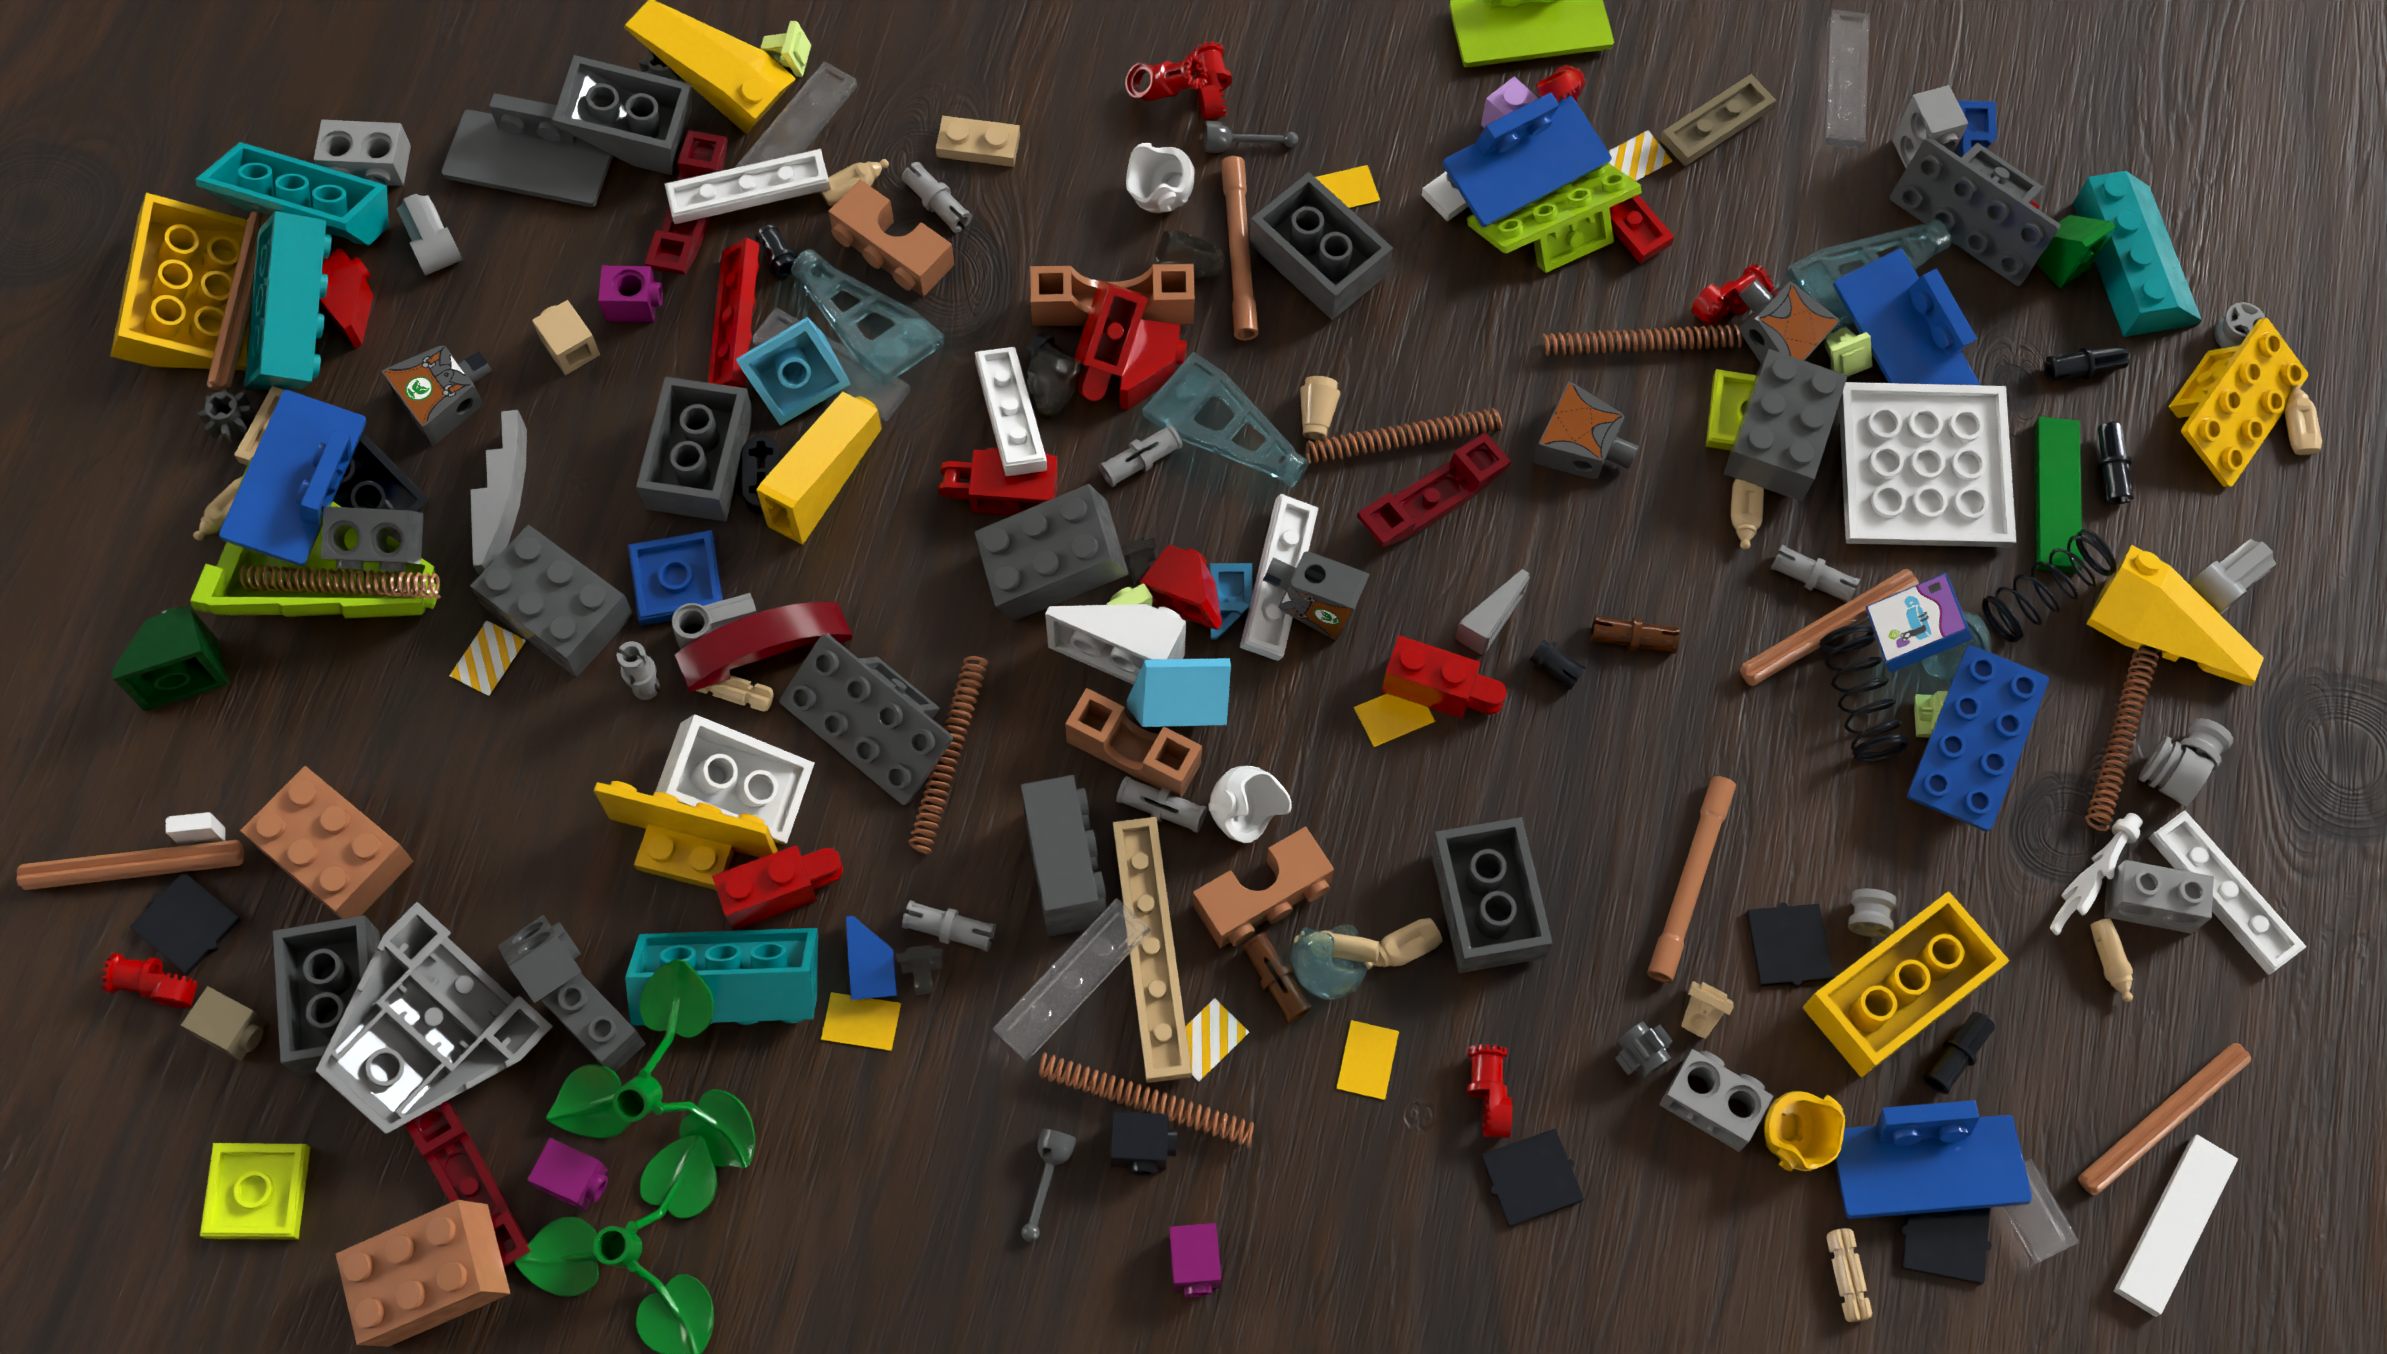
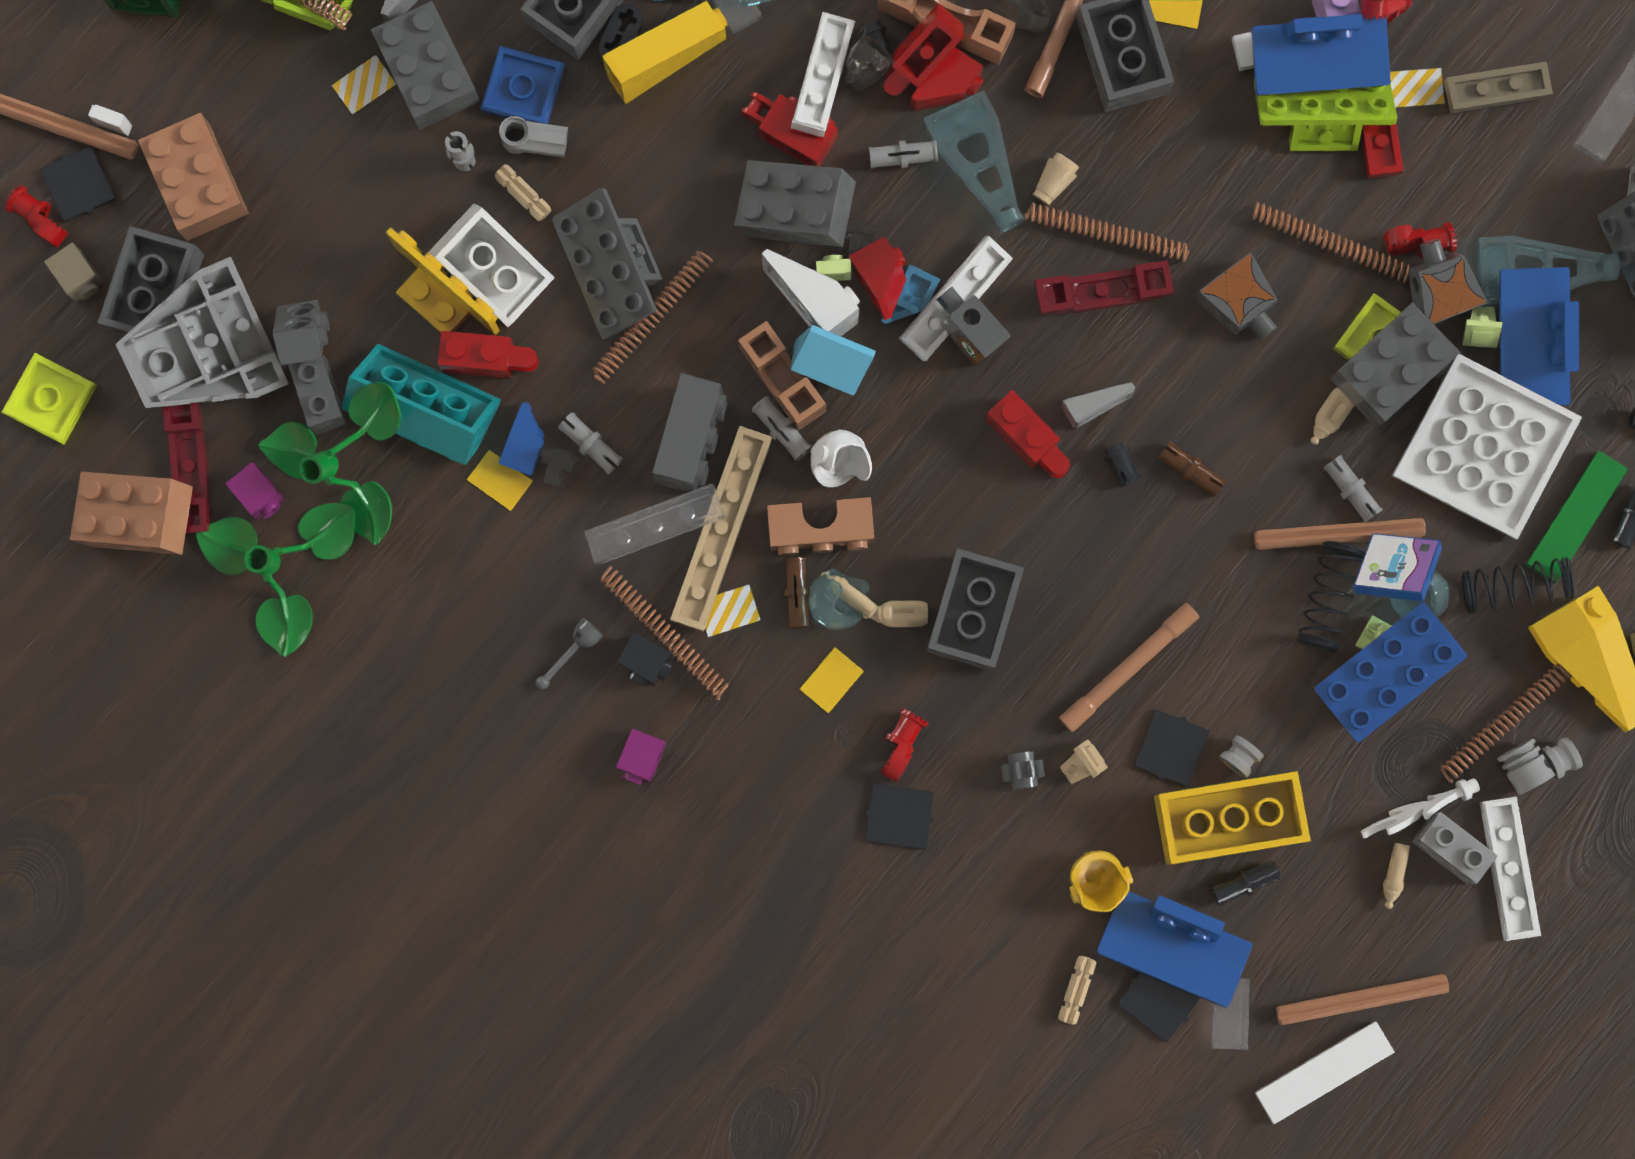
camera: 30 degrees right, 15 degrees up
(756, 638) = (558, 166): dark red slope -> none
(1391, 717) = (981, 443): yellow sticker -> none
(1711, 1110) = (1046, 833): light grey brick -> none

